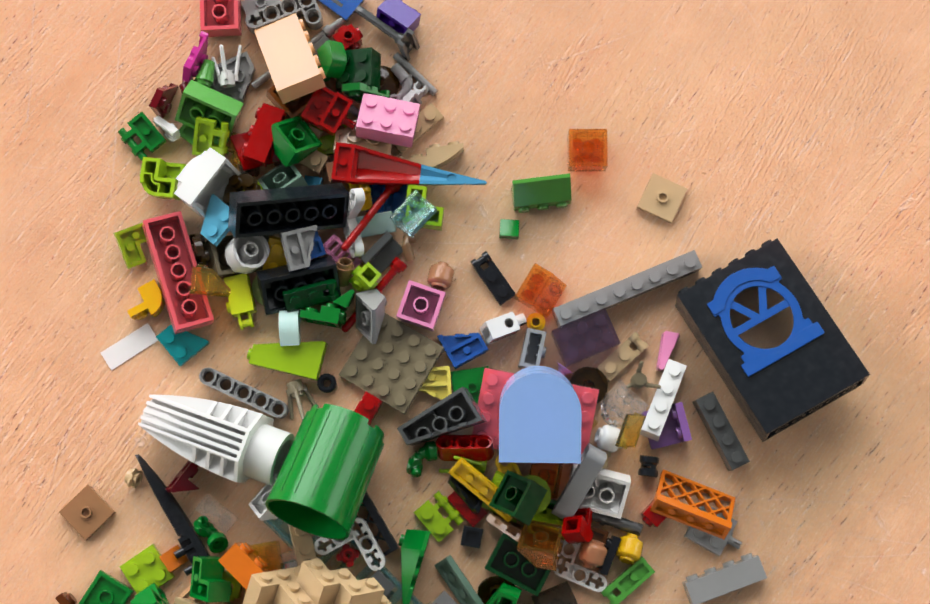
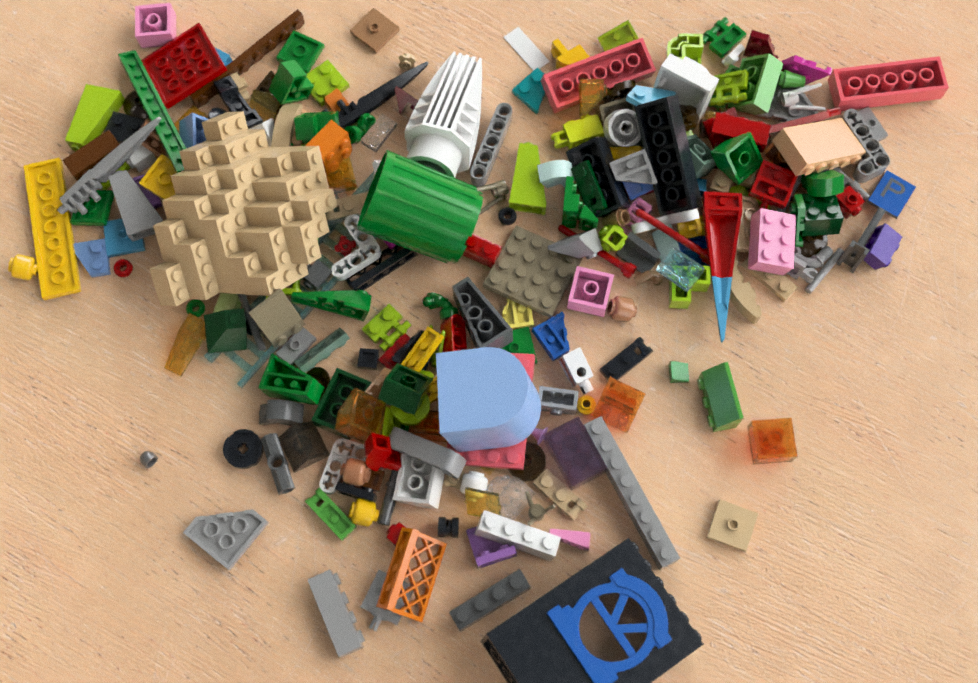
camera: 90 degrees right, 10 degrees down
(256, 72) = (805, 120): none -> plate

